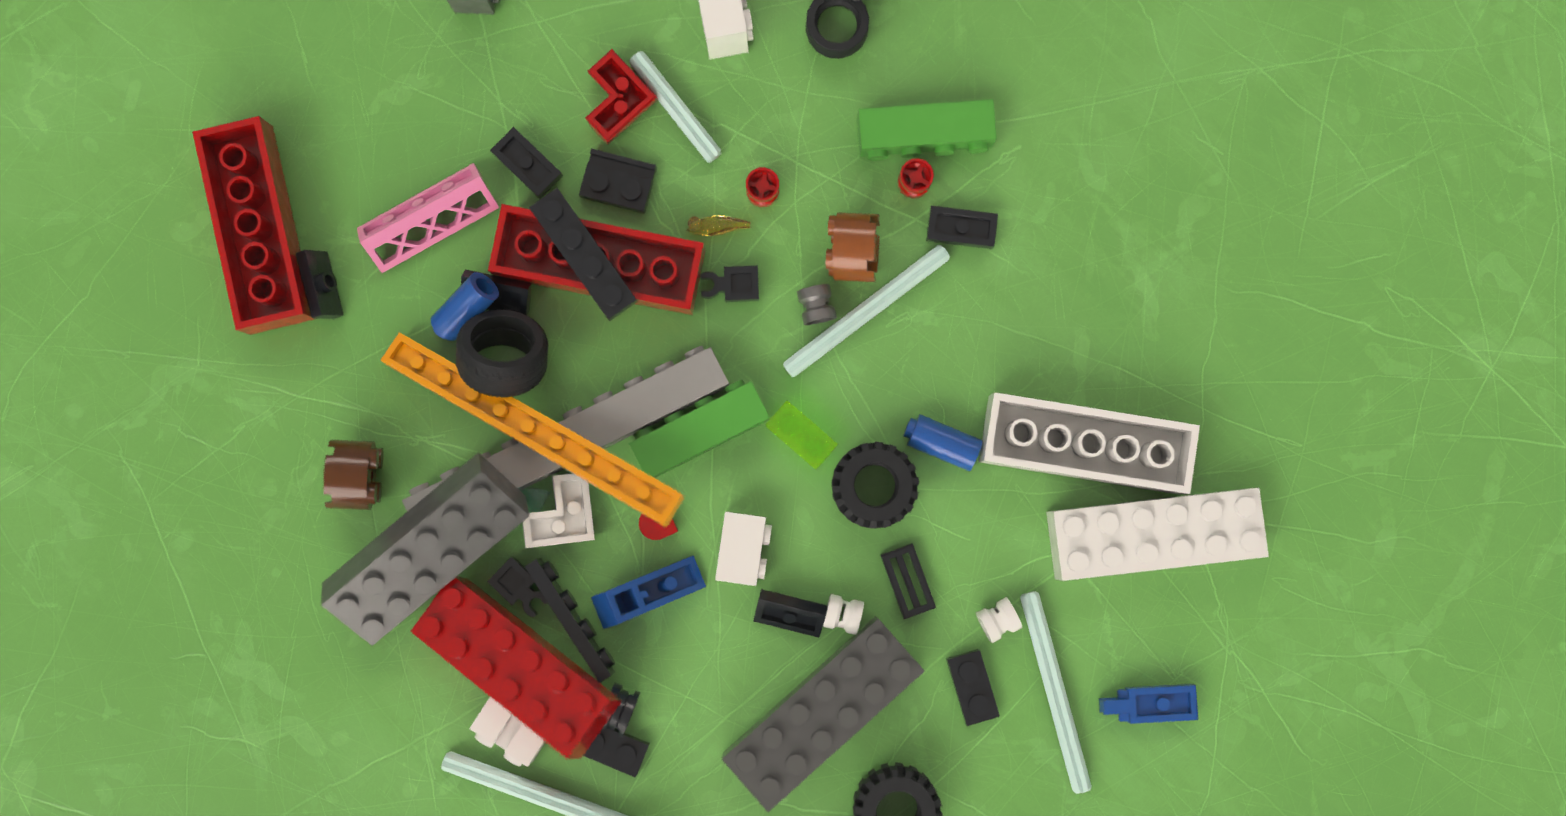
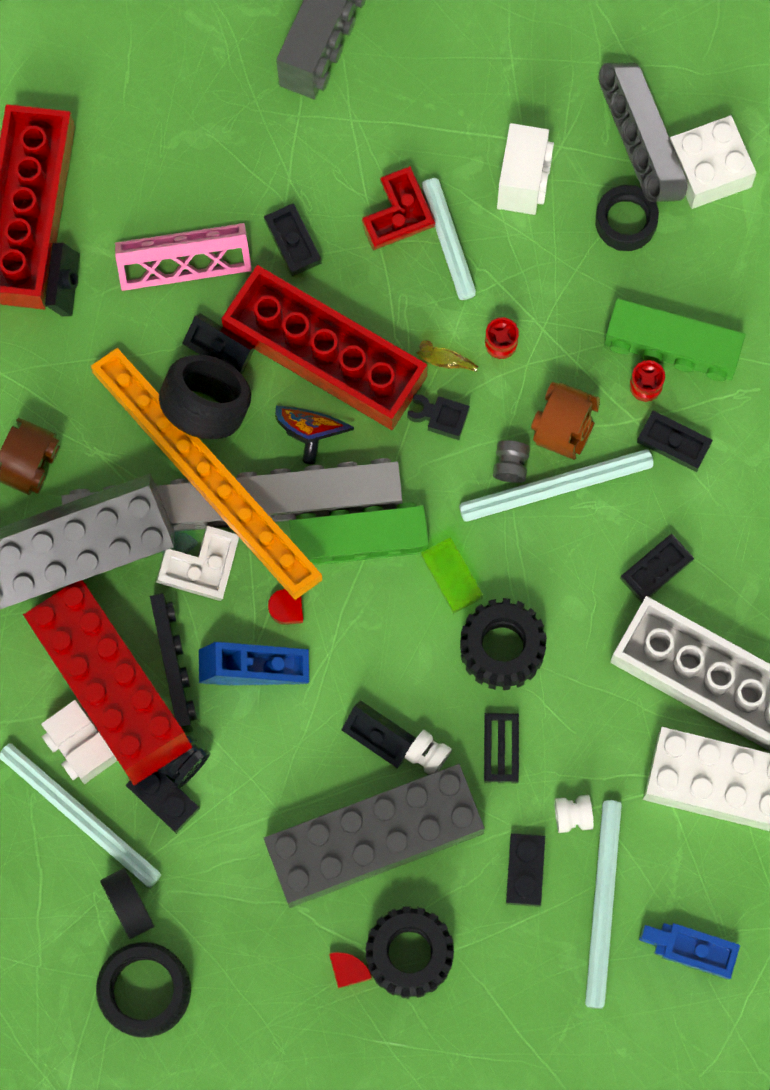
camera: 25 degrees right, 10 degrees down
(466, 302) = (193, 339): blue brick -> none
(515, 583) = (133, 613): black plate -> none
(583, 254) = (313, 335): black plate -> none
(613, 342) = (309, 428): none -> shield
(618, 181) = (370, 286): black plate -> none
(741, 549) = (356, 657): white brick -> none
(943, 442) = (582, 629): blue brick -> none
(990, 356) = (657, 568): none -> black plate

